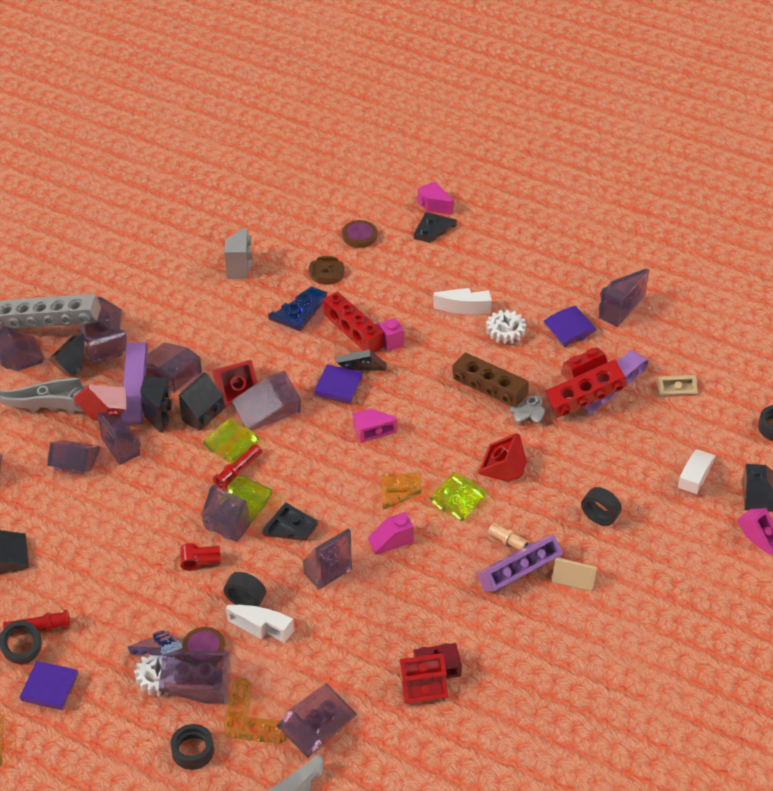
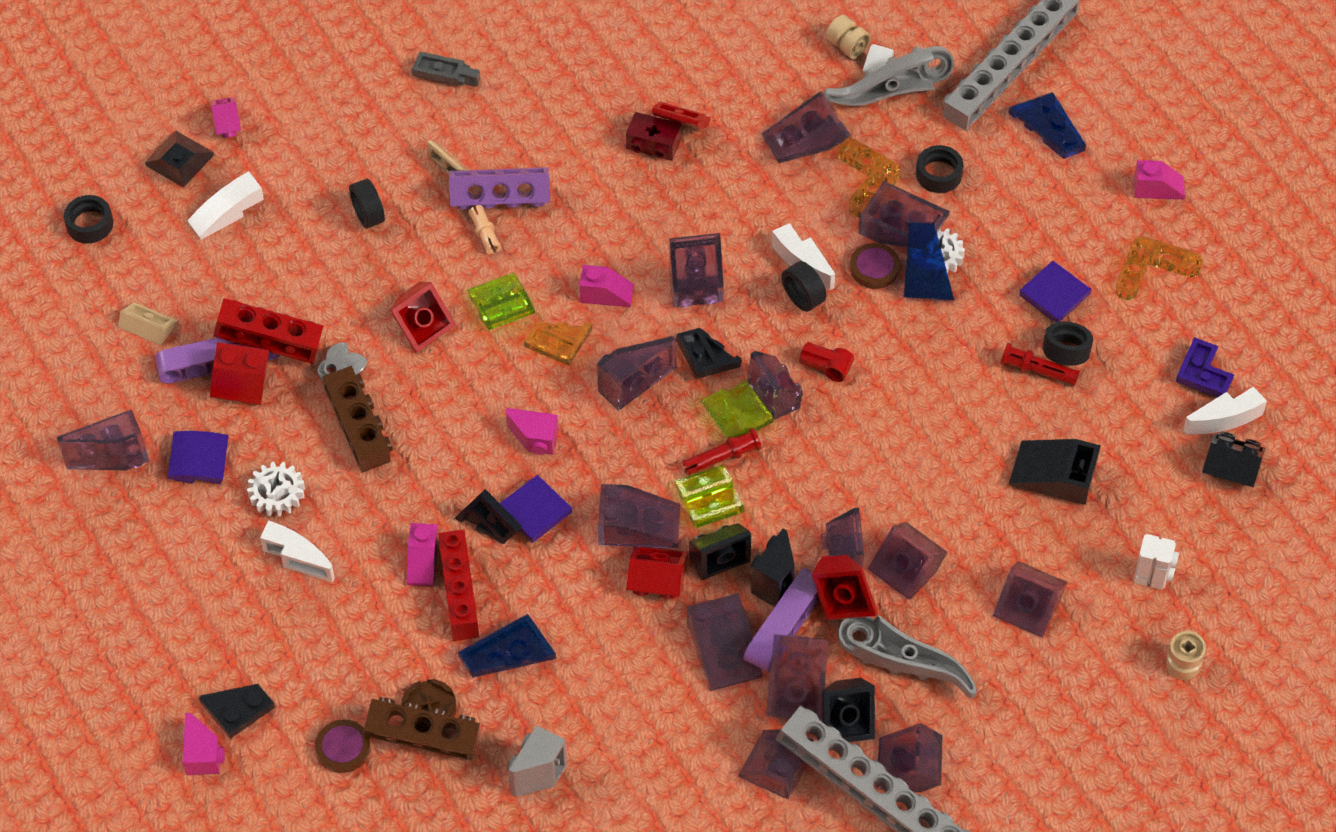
camera: 150 degrees left, 10 degrees up
(317, 246) = (460, 746): none -> reddish brown brick
(329, 477) = (634, 369): none -> slope
(638, 642) = (445, 70): none -> dark grey hinge

